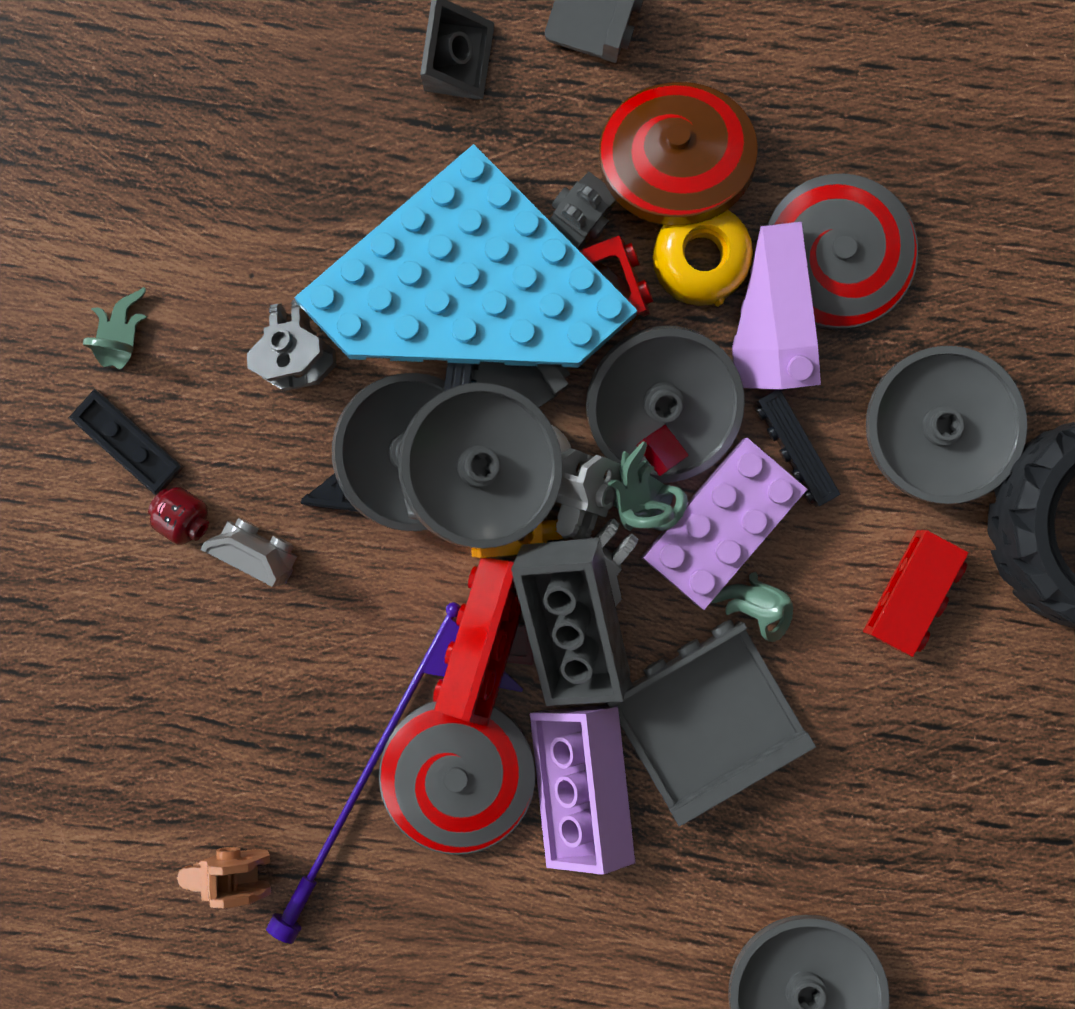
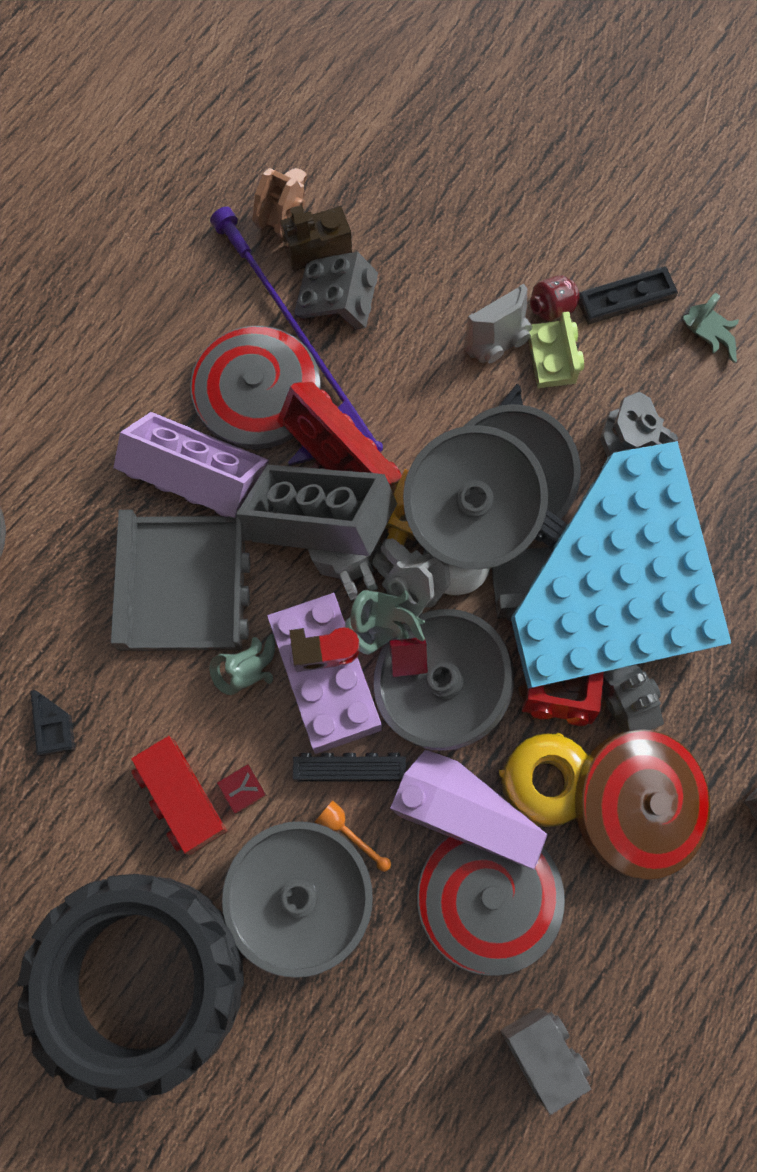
camera: 120 degrees right, 15 degrees down
(240, 483) = (555, 352): none -> yellowish green bracket
(250, 812) = (315, 235): none -> dark brown hinge
(298, 754) = (339, 286): none -> dark grey bracket
(716, 530) = (323, 651): none -> leg
(853, 436) = (334, 818): none -> orange hinge
(873, 538) = (241, 789): none -> dark red tile
(917, 758) = (51, 726): none -> black tile
(957, 125) = (547, 1062): none -> flat silver brick

